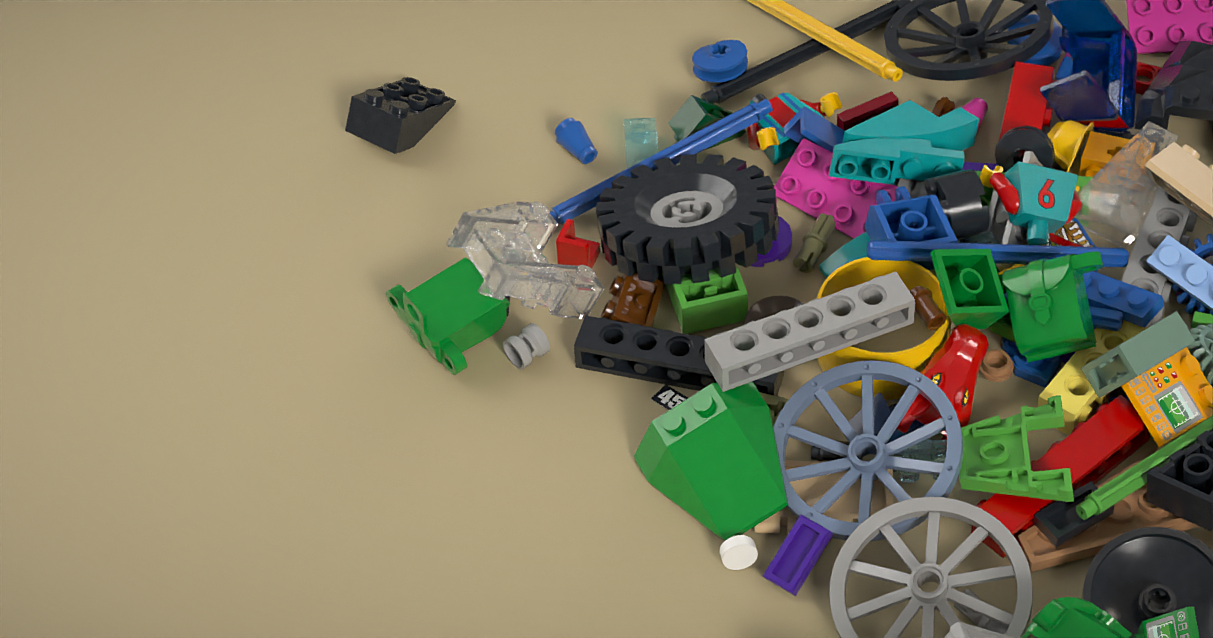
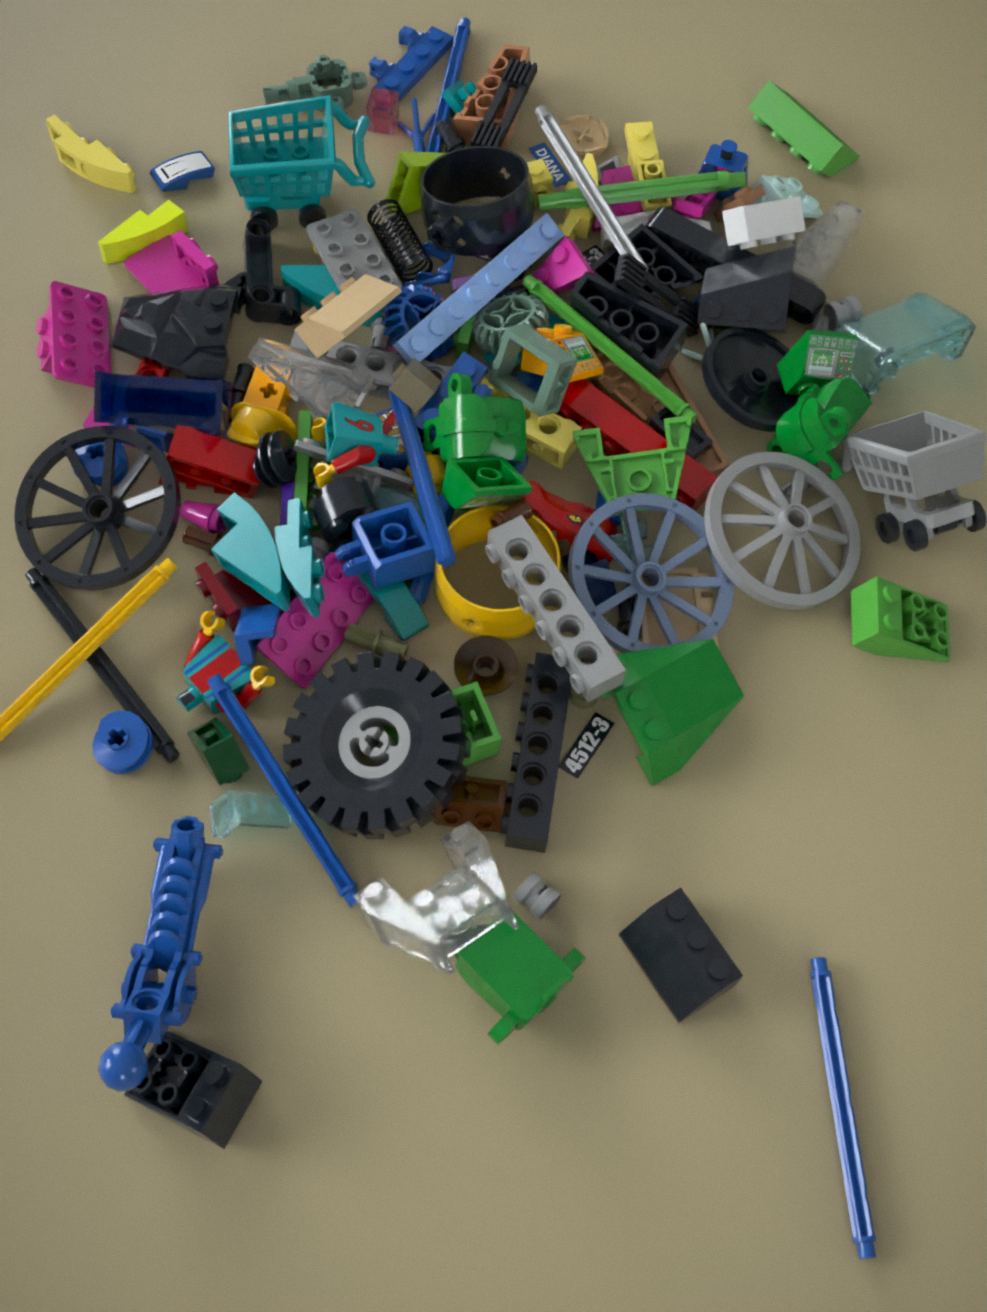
camera: 105 degrees left, 15 degrees up
(280, 566) = (843, 1110): none -> piece
(450, 457) = (680, 955): none -> black slope
(487, 82) = (176, 903): none -> blue piece
(574, 139) = (238, 882): blue cone -> none
(575, 250) = (400, 862): red panel -> none
(738, 552) = (754, 684): white tile -> none
(797, 555) = (752, 635): dark purple tile -> none
(1120, 255) = (414, 384): none -> dark tan brick

